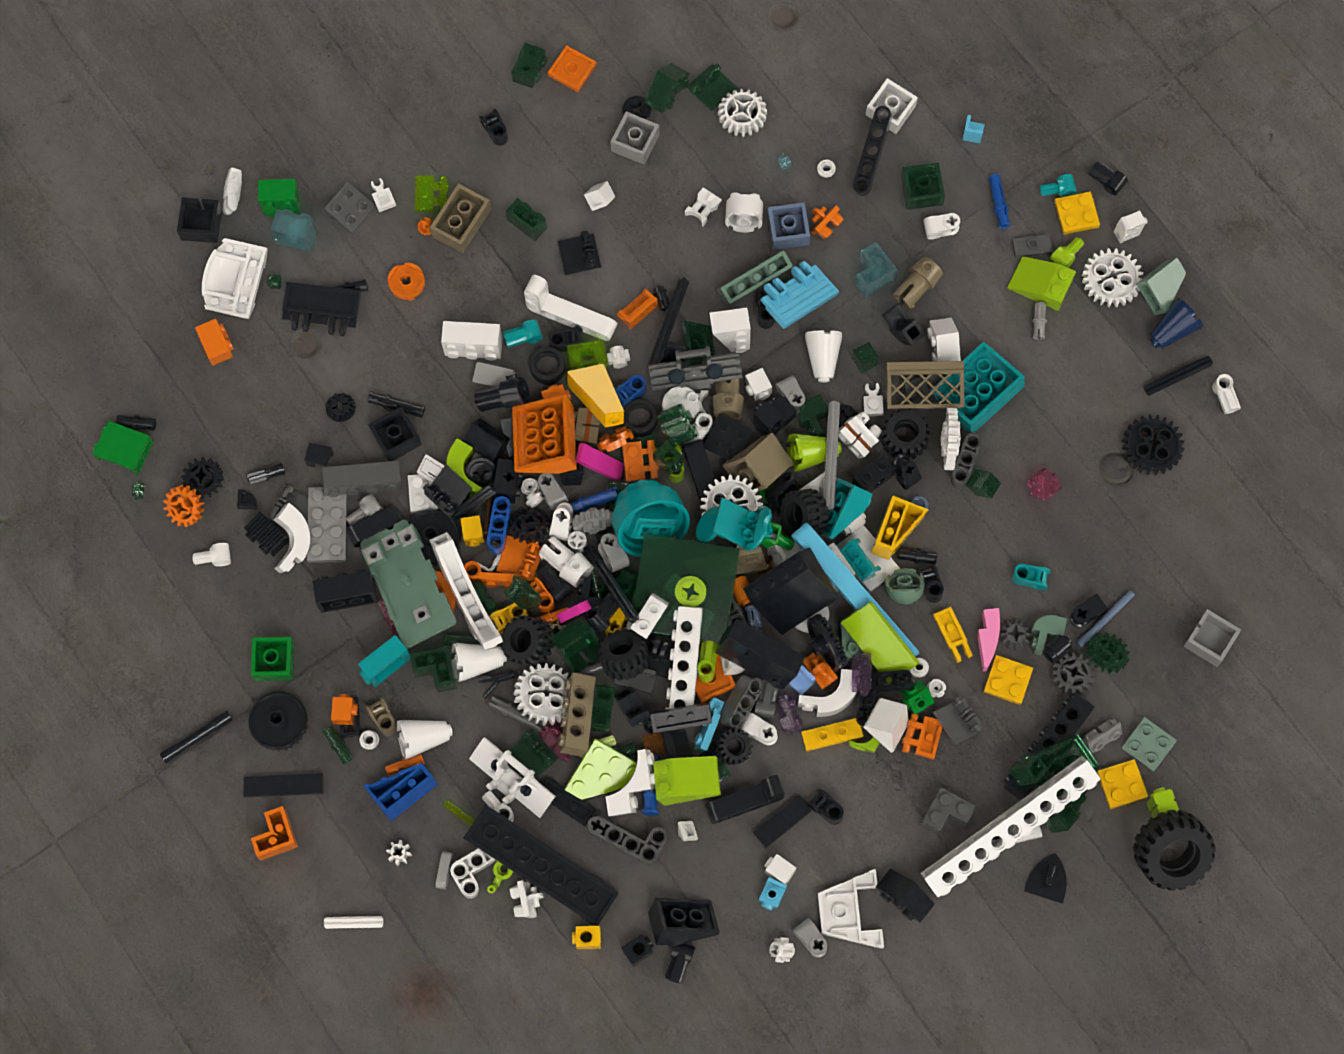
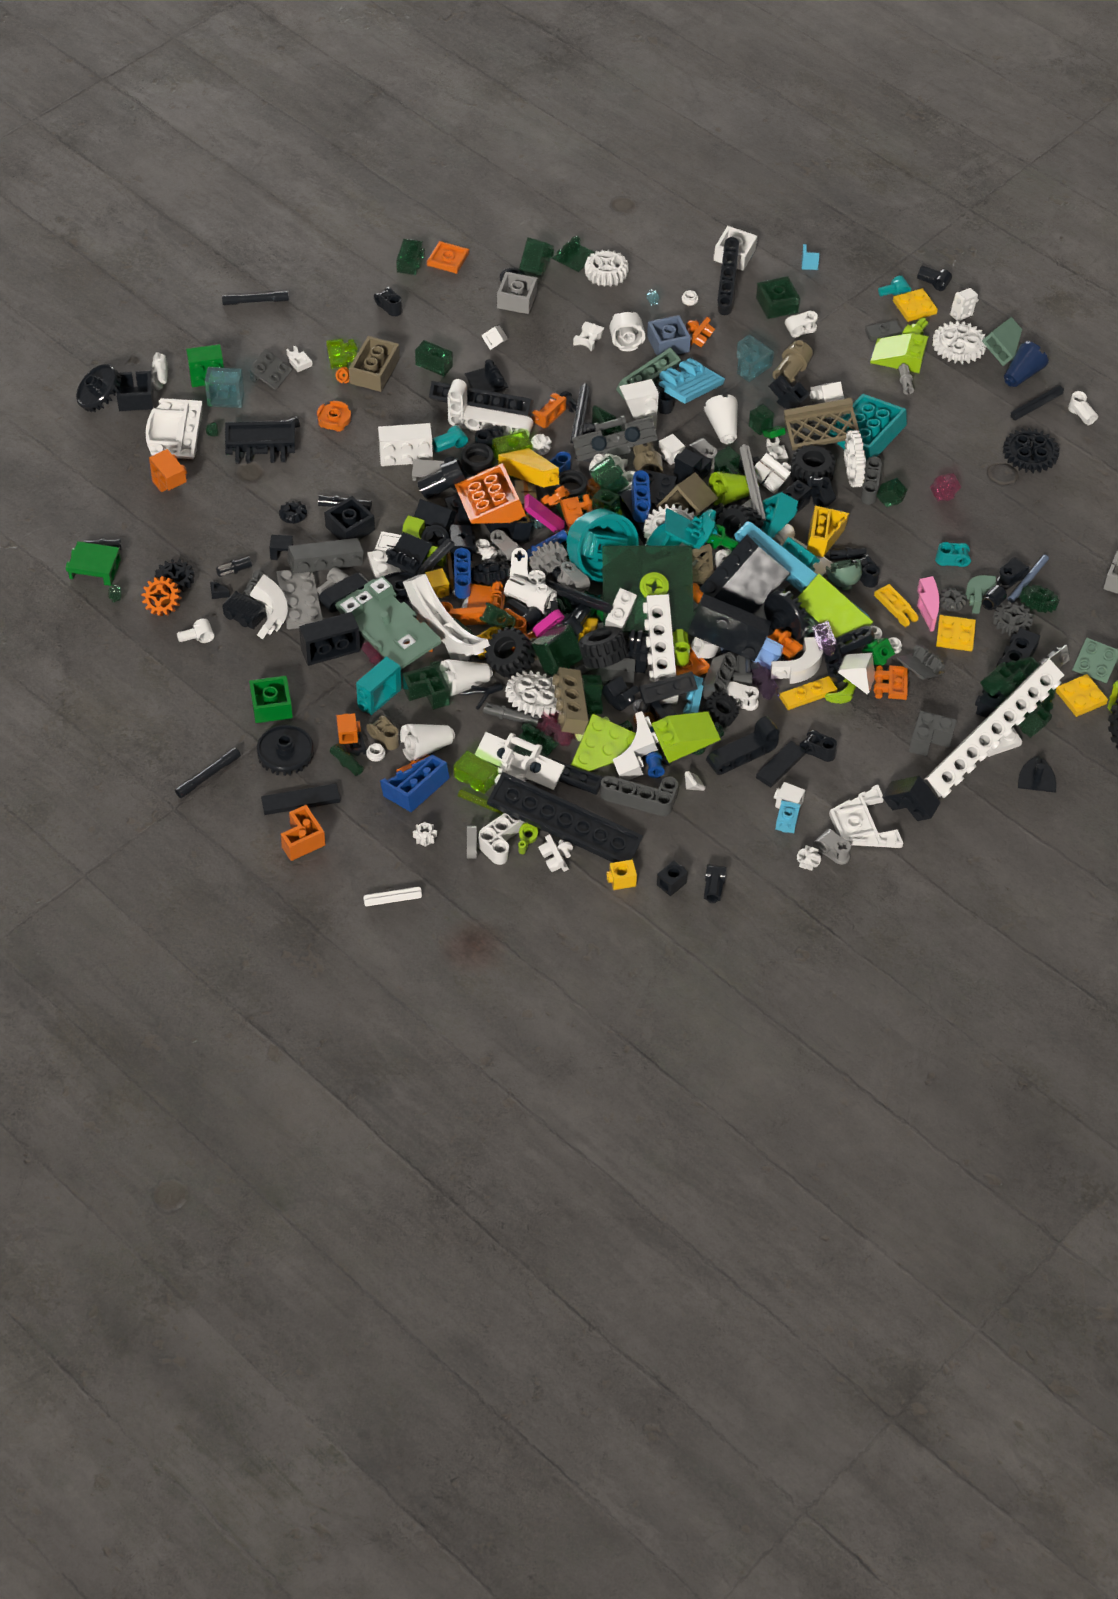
camera: 15 degrees left, 20 degrees down
(160, 212) = (97, 387): none -> black wheel
(329, 99) = (251, 298): none -> black piece
(464, 783) = (475, 771): none -> clear neon green piece
(568, 286) = (485, 399): none -> black brick
(682, 920) = (706, 846): black slope -> none
(708, 450) = (640, 496): none -> blue beam
(875, 375) = (774, 432): none -> green tile
(1001, 209) = (848, 307): blue pin -> none

